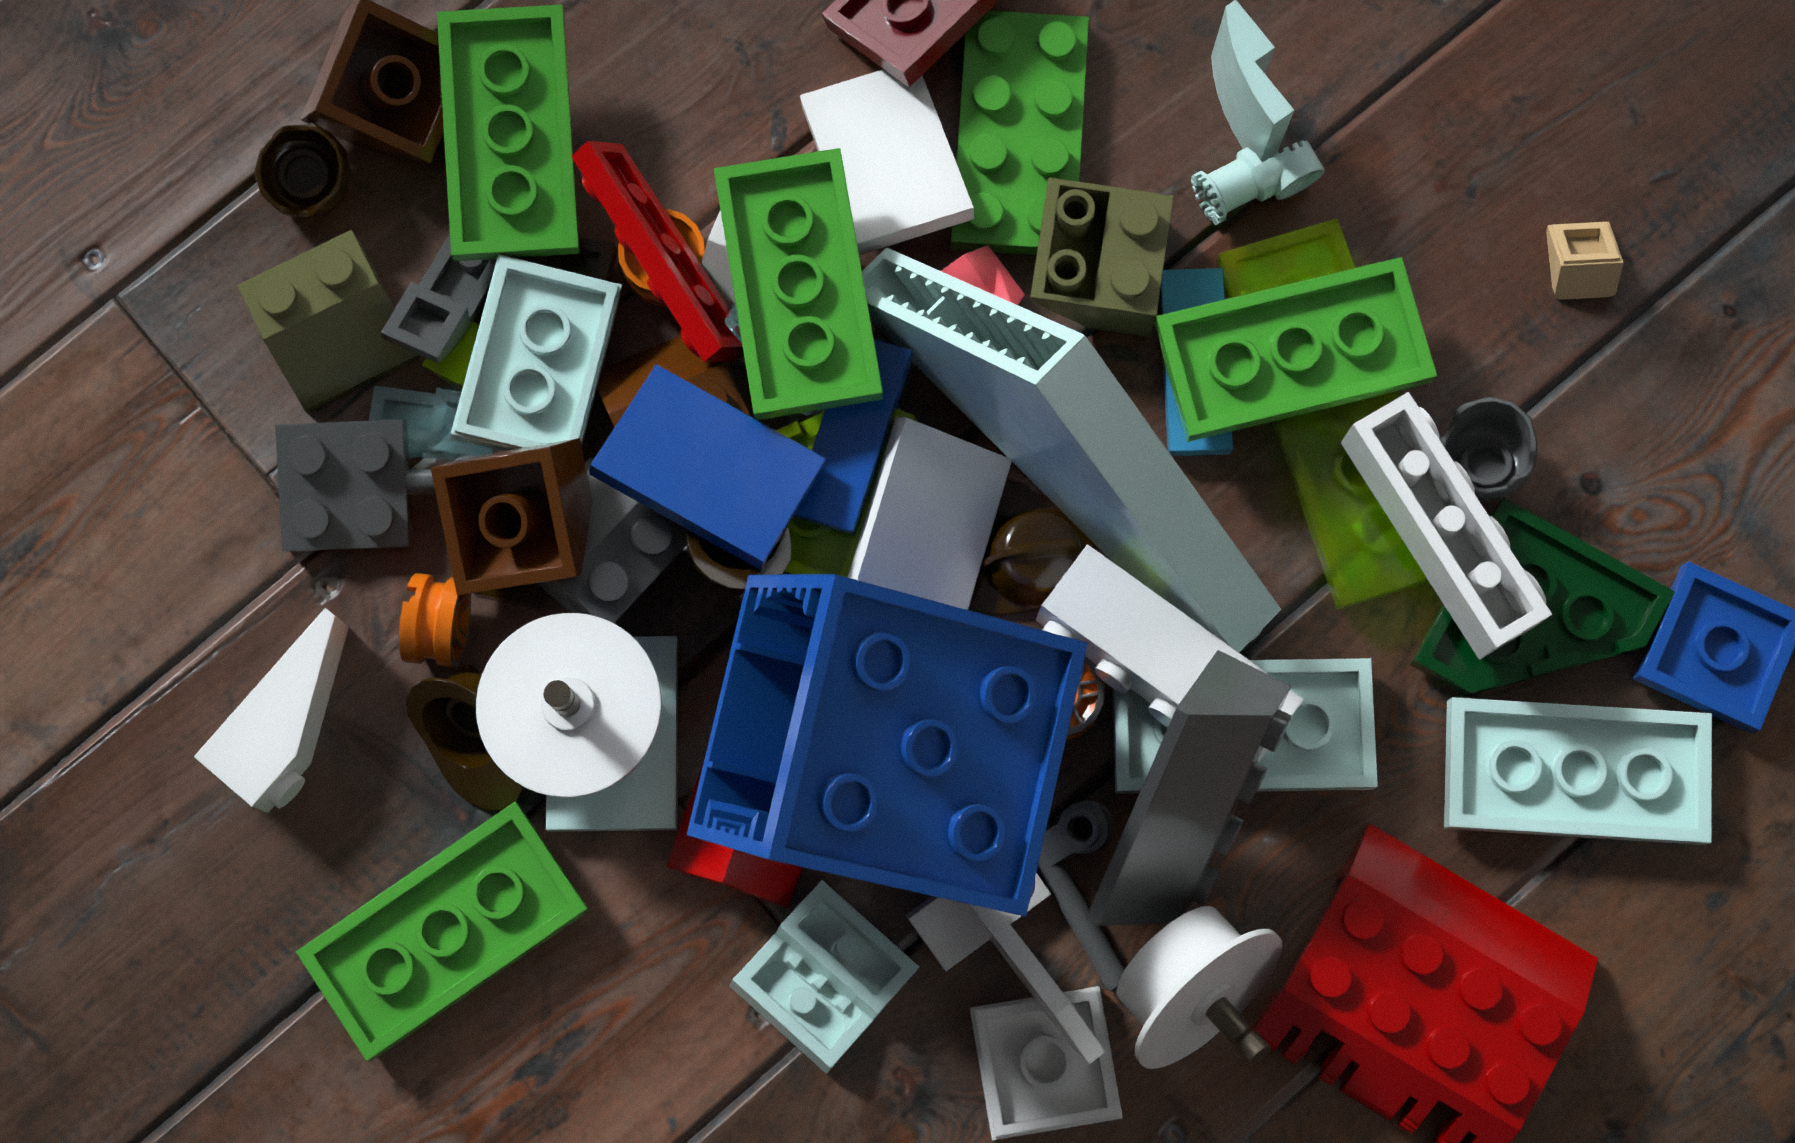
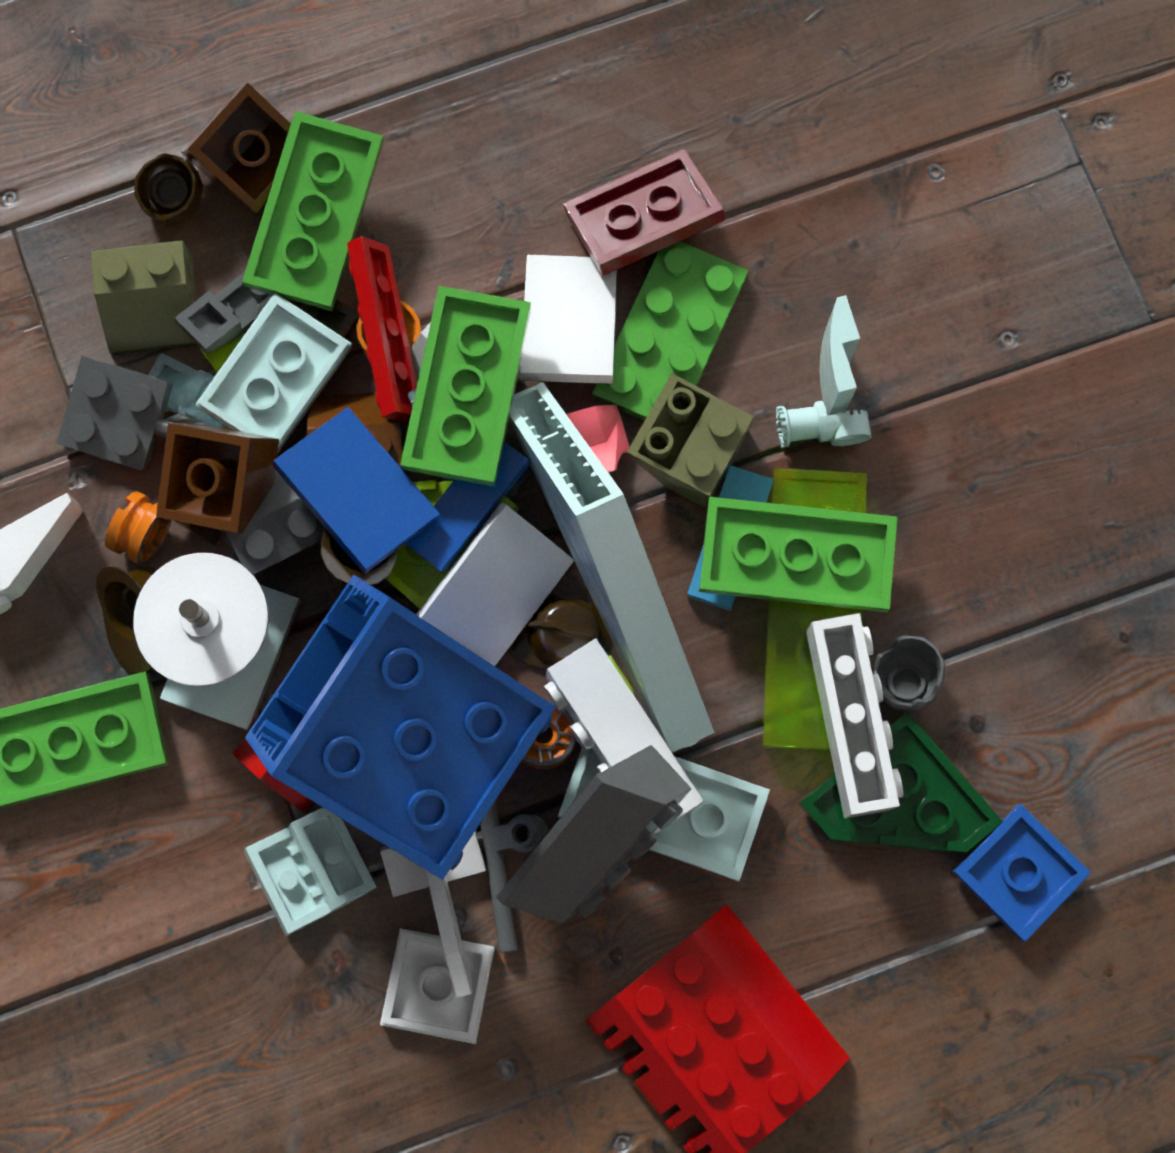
camera: 20 degrees right, 0 degrees up
(1196, 984) = (555, 971): white piece -> none
(1578, 771) = (886, 922): light aqua plate -> none
(1583, 260) = (1032, 564): tan slope -> none

